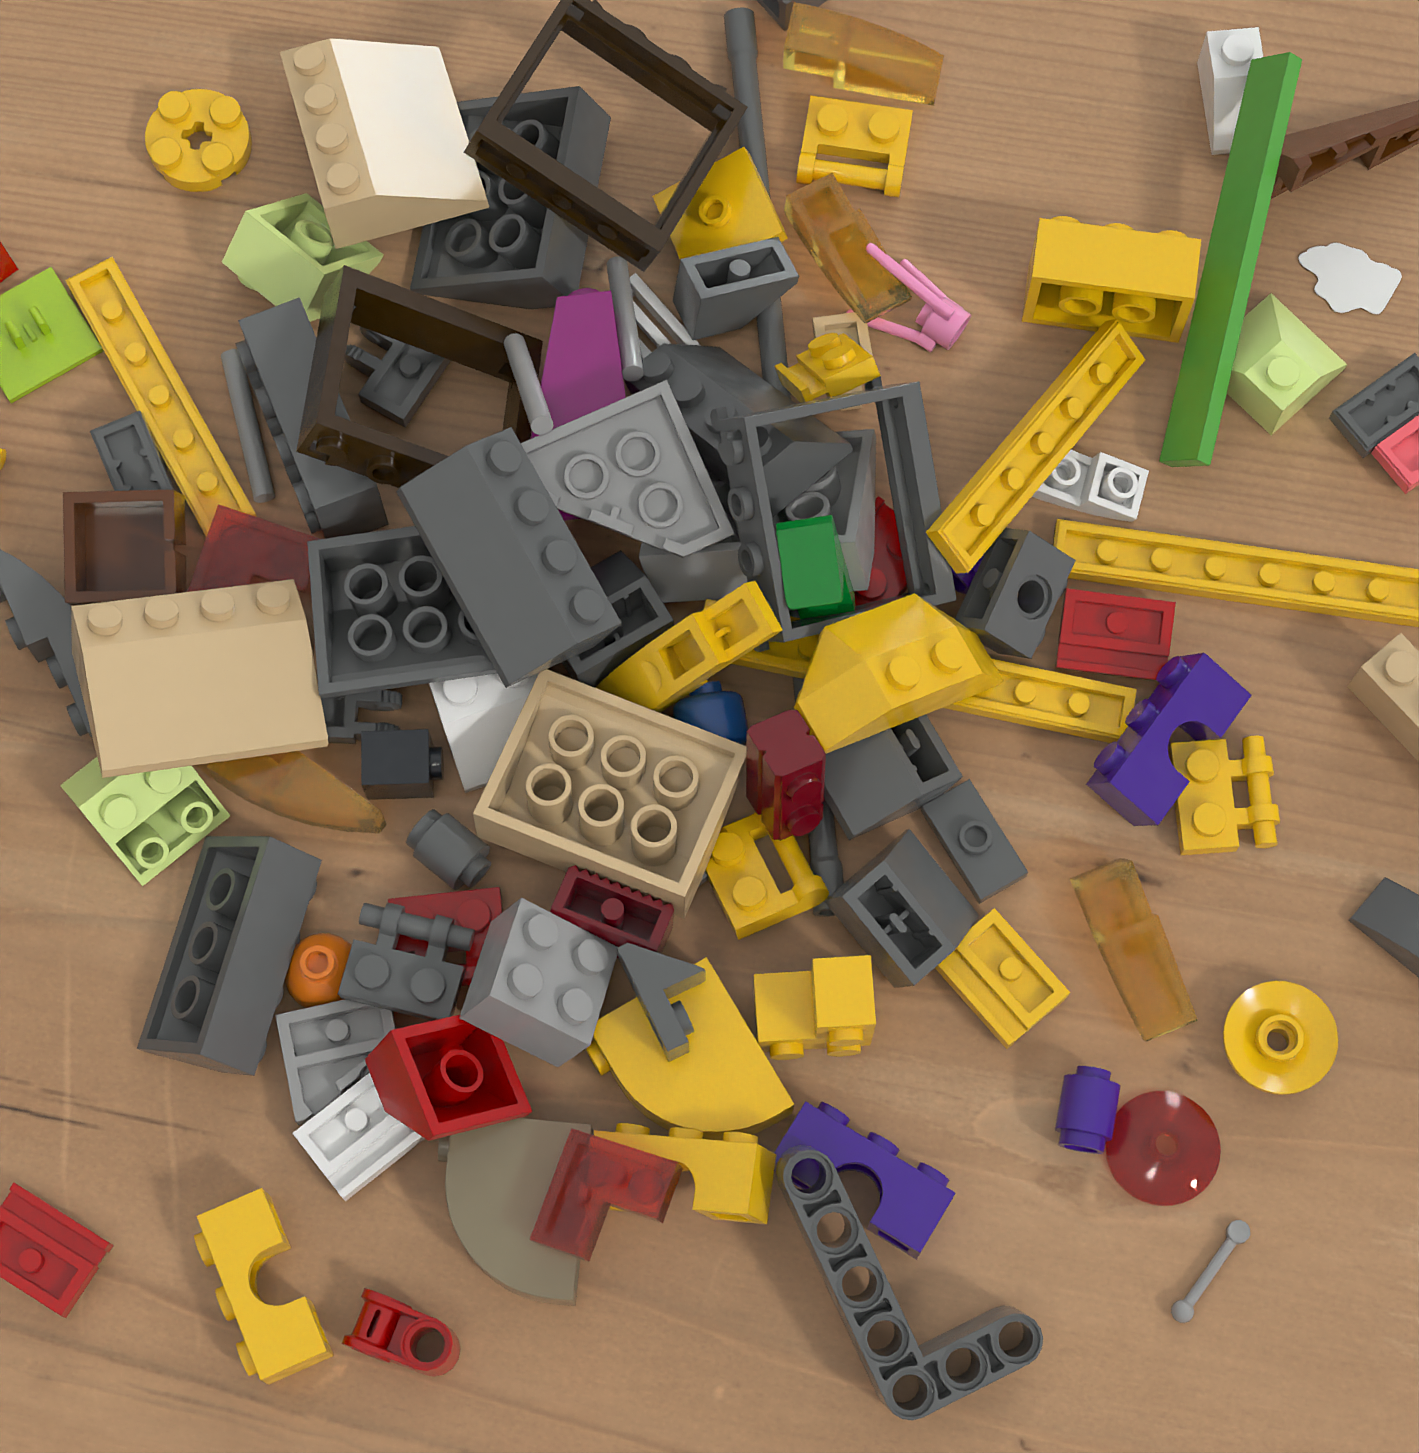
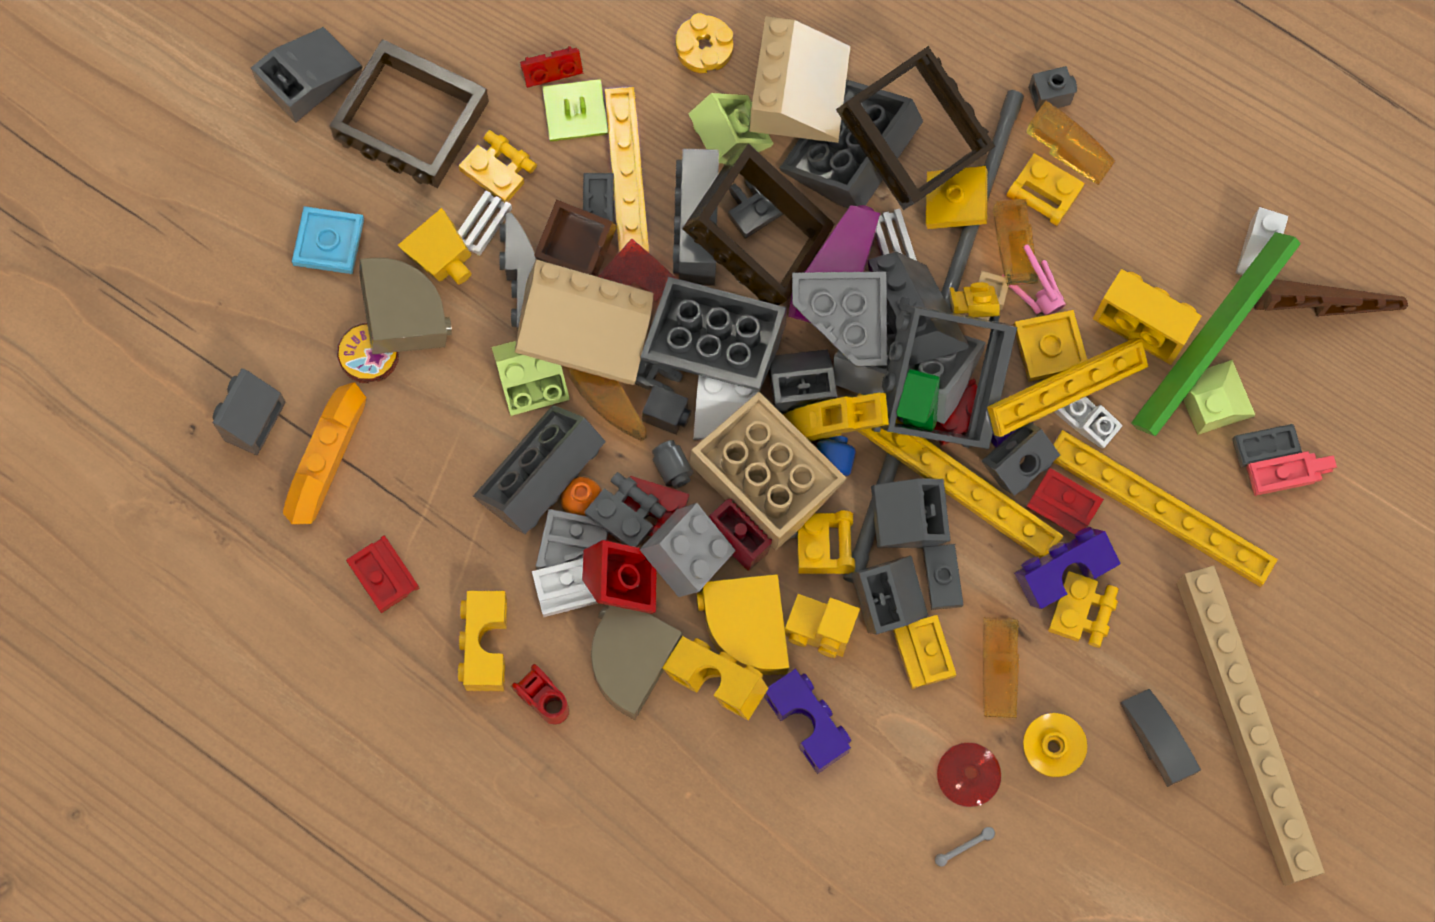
camera: 20 degrees right, 0 degrees up
(247, 426) = (664, 204): light grey bar -> none
(508, 557) = (765, 328): dark grey slope -> none
(528, 384) = (815, 243): light grey bar -> none
(591, 1179) = (672, 658): clear red plate -> none
(625, 318) = (882, 230): light grey bar -> none
(655, 981) = (747, 574): dark grey slope -> none
(731, 286) = (946, 236): dark grey slope -> none
(785, 775) = (858, 499): dark red brick -> none
(879, 1304) = (787, 785): dark grey beam -> none
(889, 671) = (936, 470): yellow wedge -> none
(976, 390) = (1049, 344): none -> yellow plate
(1087, 1110) = (938, 737): dark purple brick -> none
(1350, 278) = (1279, 370): white sticker -> none

